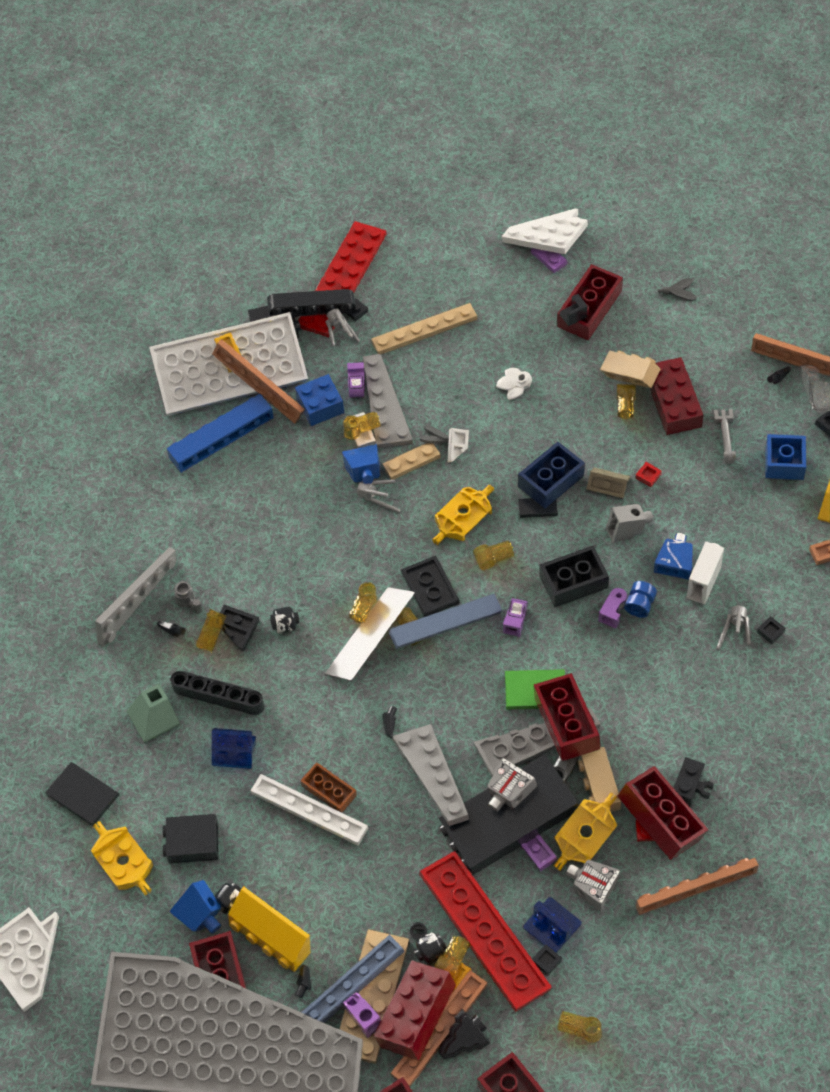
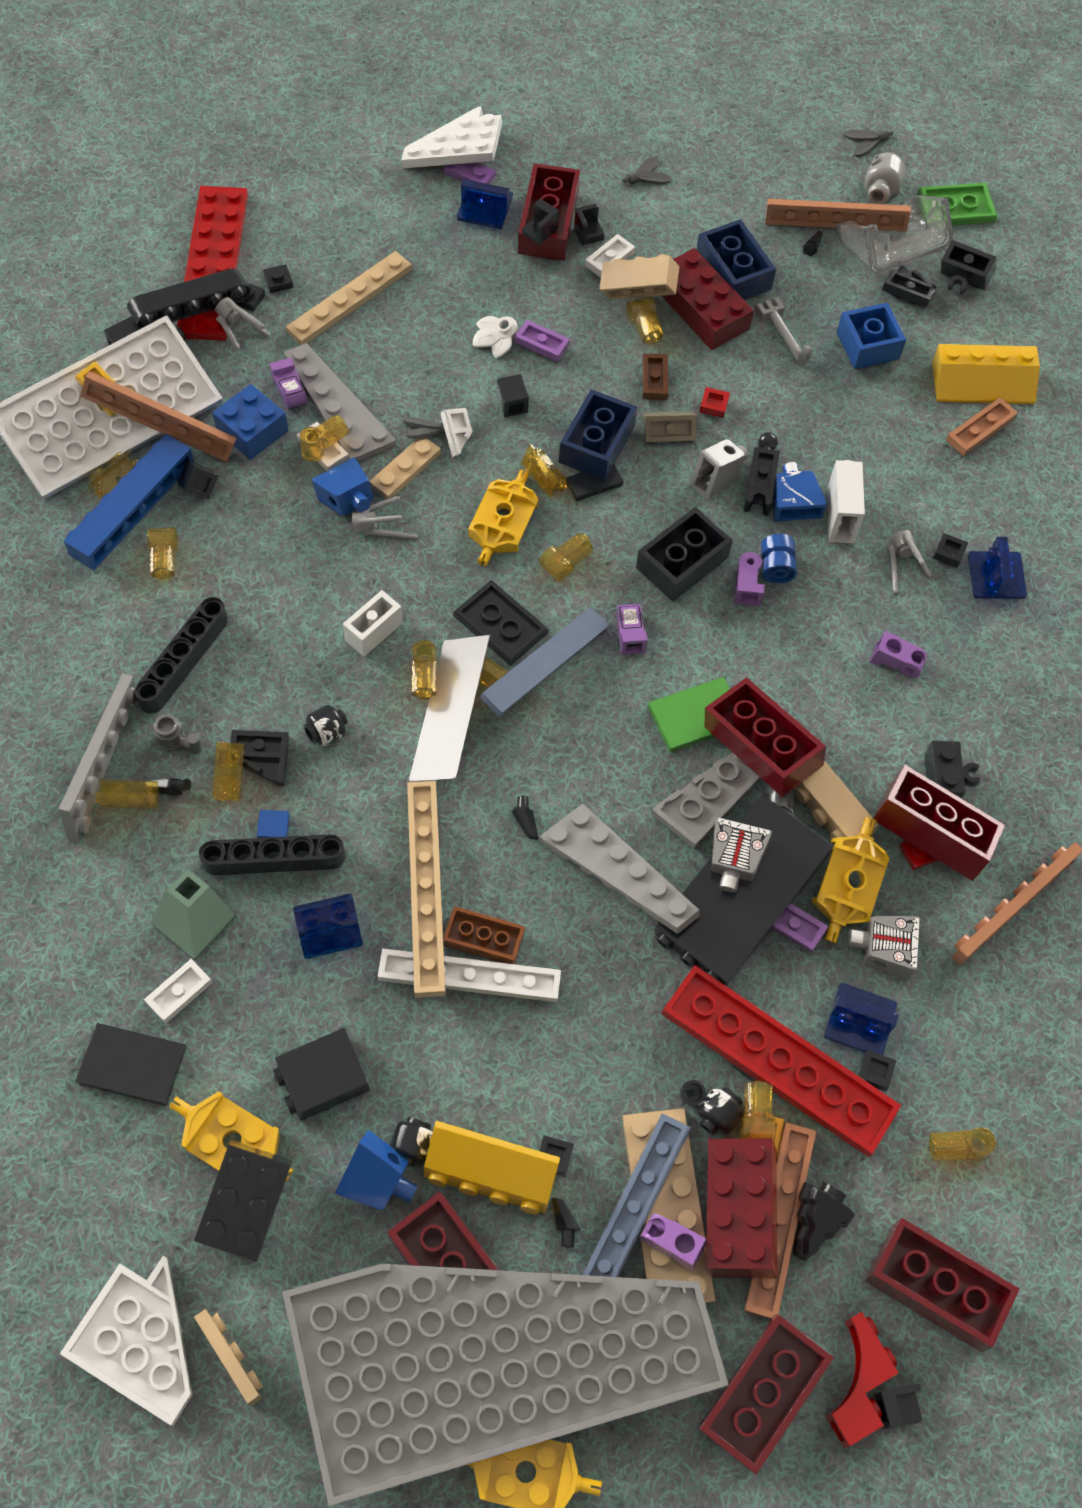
camera: 30 degrees left, 5 degrees up
(71, 984) = (230, 1356): none -> tan plate
(112, 894) = (243, 1200): none -> black brick
(126, 758) = (178, 991): none -> white plate
(144, 625) = (128, 794): none -> clear yellow hinge
(210, 412) = (105, 480): none -> clear yellow hinge
(216, 537) = (180, 667): none -> black beam
(226, 673) = (273, 823): none -> blue tile
(229, 469) = (162, 548): none -> clear yellow piece
(269, 430) = (197, 479): none -> black panel
(303, 745) = (425, 890): none -> tan plate
(317, 938) = (560, 1149): none -> black plate
(342, 561) = (372, 623): none -> white brick
(381, 301) = (278, 278): none -> black plate
(503, 483) = (541, 470): none -> clear yellow hinge
(505, 430) = (514, 395): none -> black panel
(544, 396) = (542, 340): none -> medium lavender plate
(547, 284) = (484, 204): none -> clear blue bracket
(614, 444) = (655, 376): none -> reddish brown plate
(616, 318) = (587, 224): none -> black panel
(627, 343) = (614, 249): none -> white plate
(662, 530) = (763, 473): none -> black plate
(696, 692) = (899, 655): none -> medium lavender leg
(710, 374) = (737, 258): none -> dark blue brick
(798, 656) = (997, 572): none -> clear blue bracket

